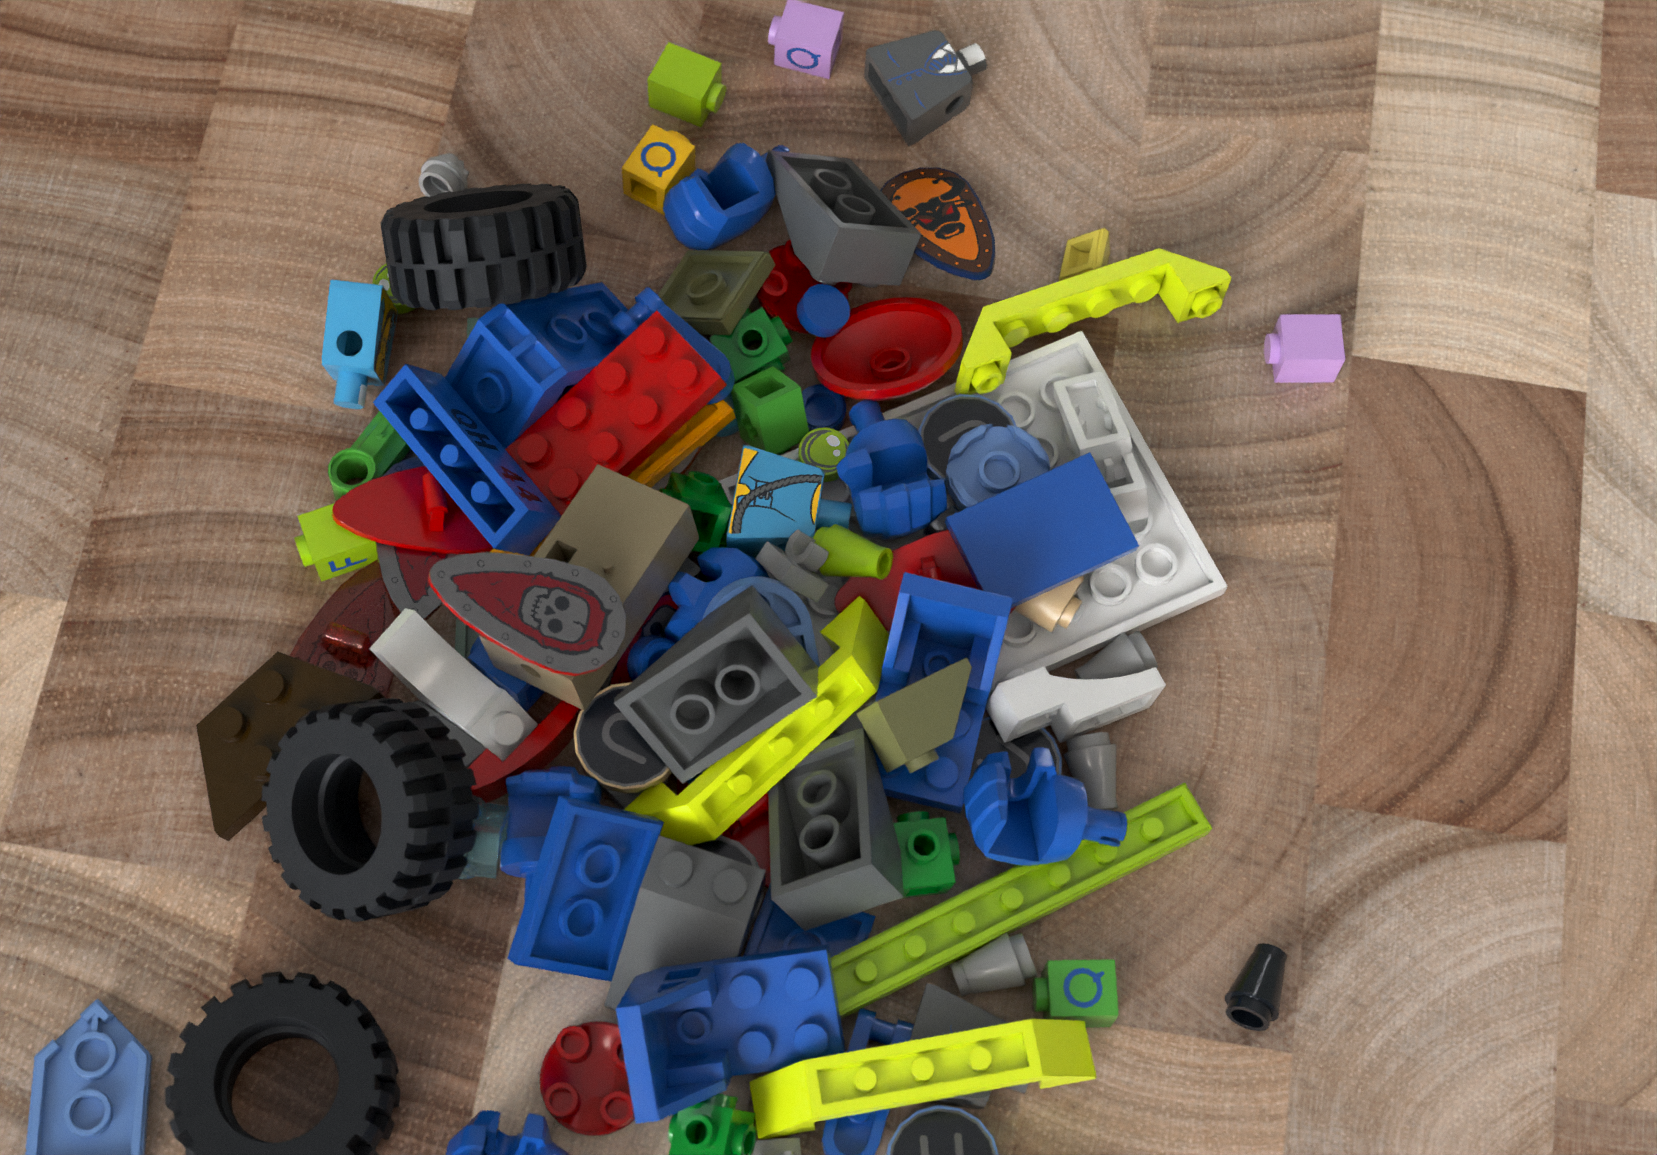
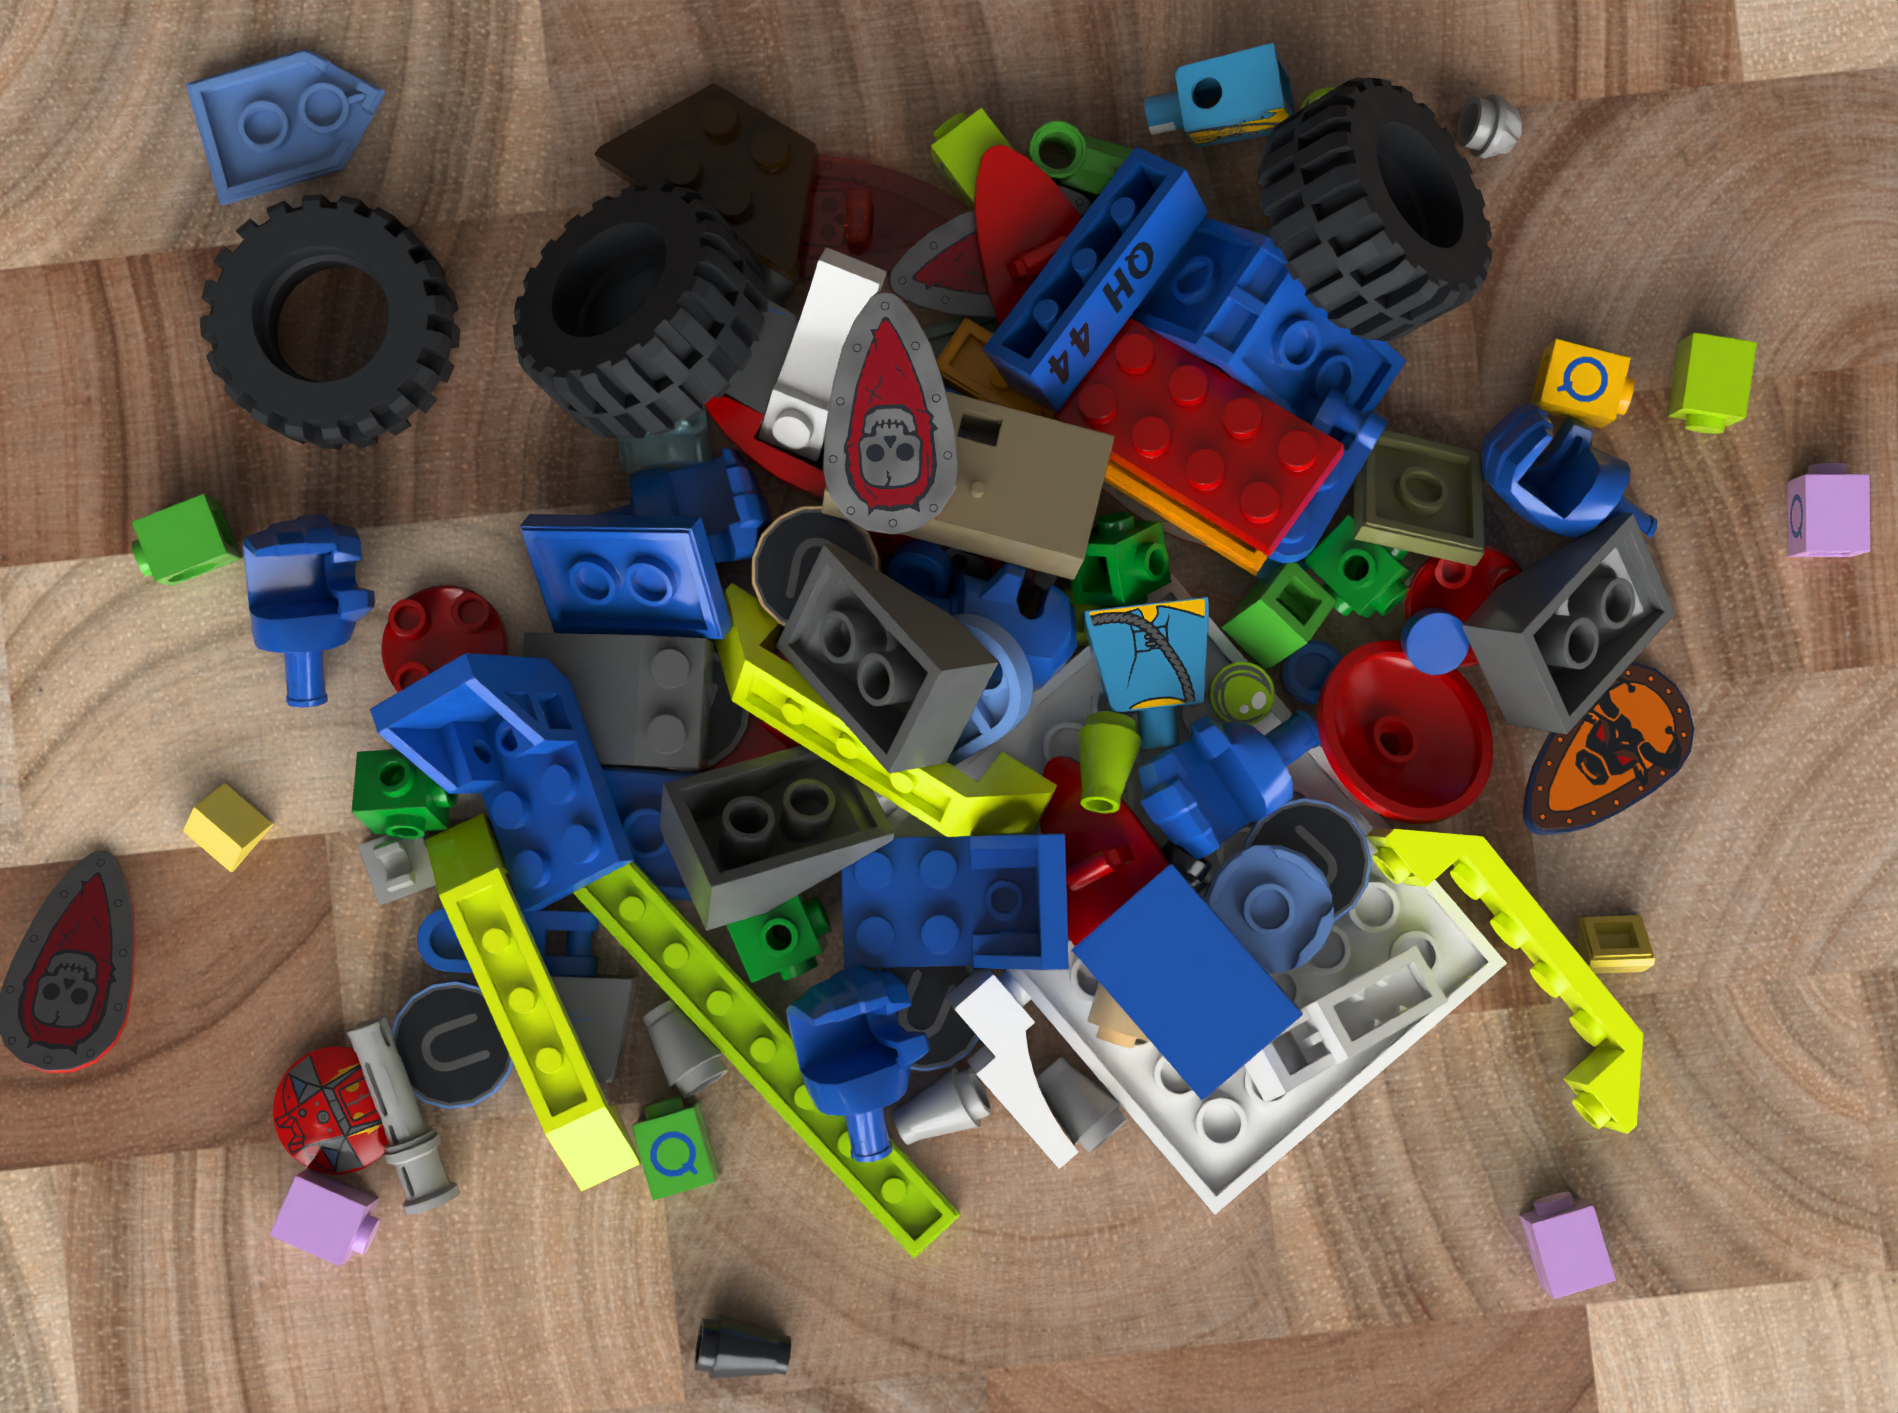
camera: 85 degrees right, 20 degrees up
(796, 564) = (1066, 701): light grey tile -> none
(917, 718) = (919, 893): olive slope -> none
(922, 81) = (1810, 678): dark grey torso -> none

